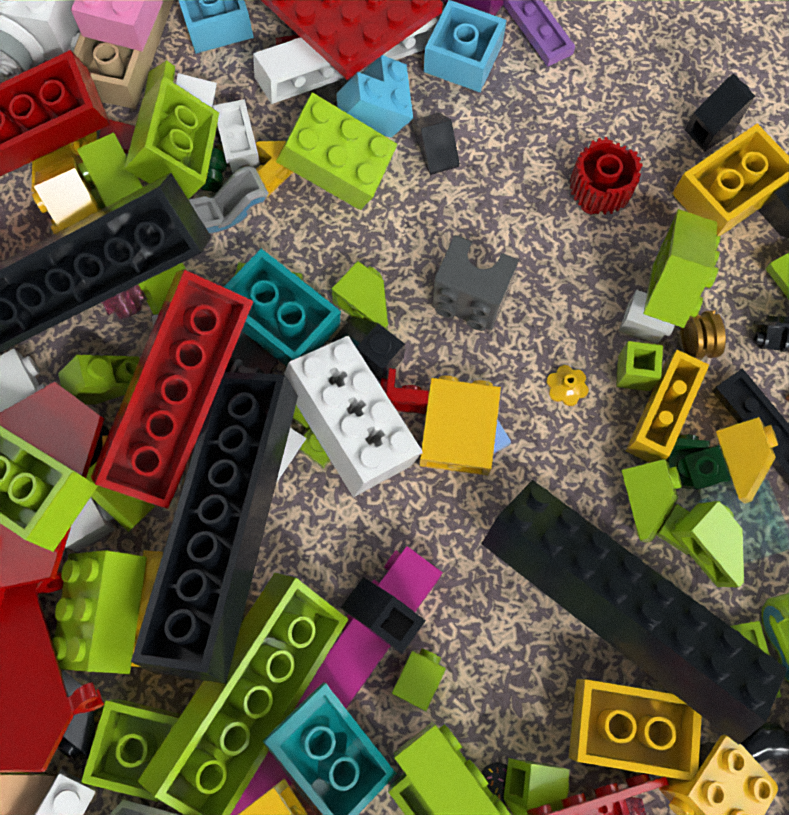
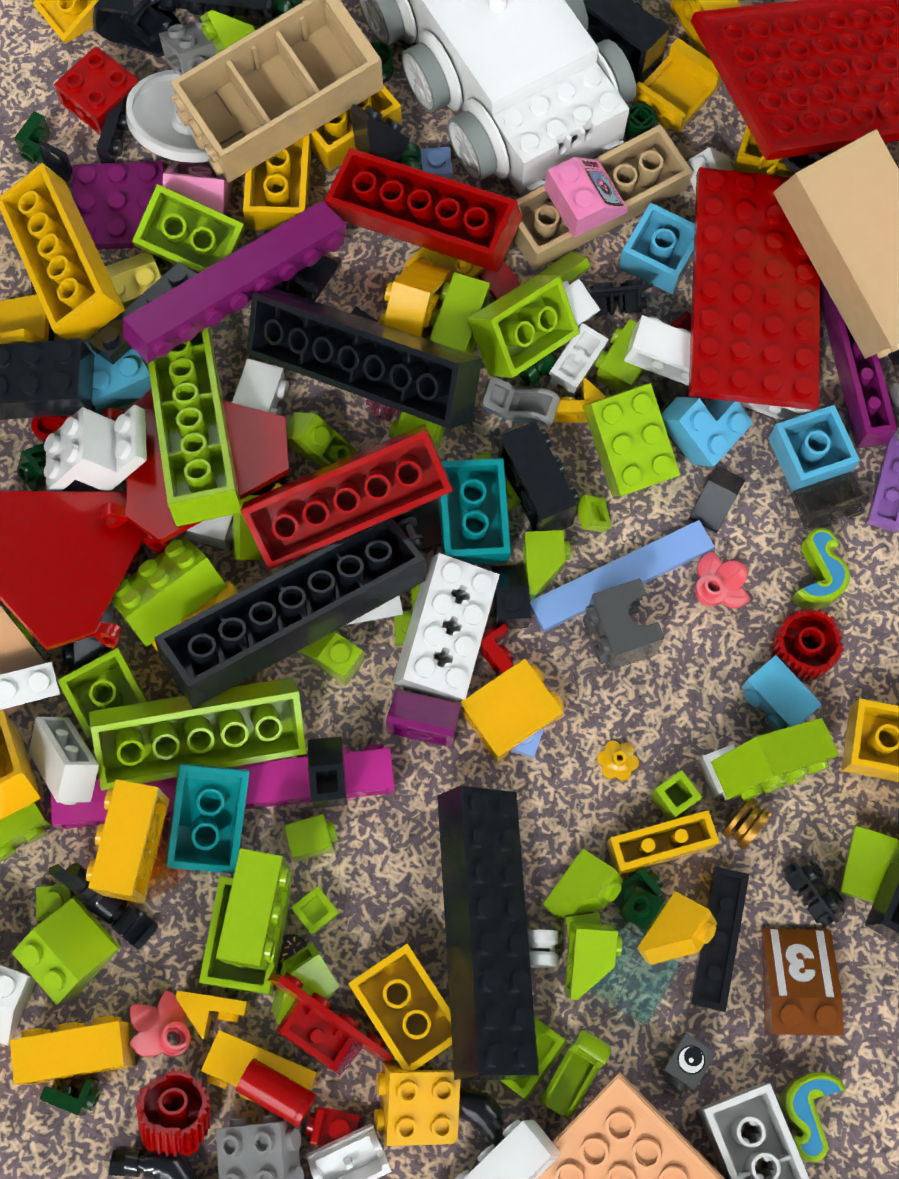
camera: 45 degrees right, 0 degrees up
(221, 65) = (629, 289): none -> black hinge
(271, 120) = (611, 364): none -> lime slope
(289, 522) = (335, 656): none -> lime slope
(301, 240) = (538, 478): none -> black brick
(363, 232) = (593, 513): none -> lime plate
(407, 496) = (423, 718): none -> magenta slope
(429, 251) = (644, 563): none -> light blue tile
(482, 731) = (315, 910): none -> lime plate
(500, 194) = (724, 579): none -> coral plate
(509, 72) = (829, 500): none -> clear smoke bracket
(557, 116) = (829, 570): none -> lime animal
(625, 228) = (780, 695): none -> medium azure brick
(667, 564) = (543, 941): none -> white wheel

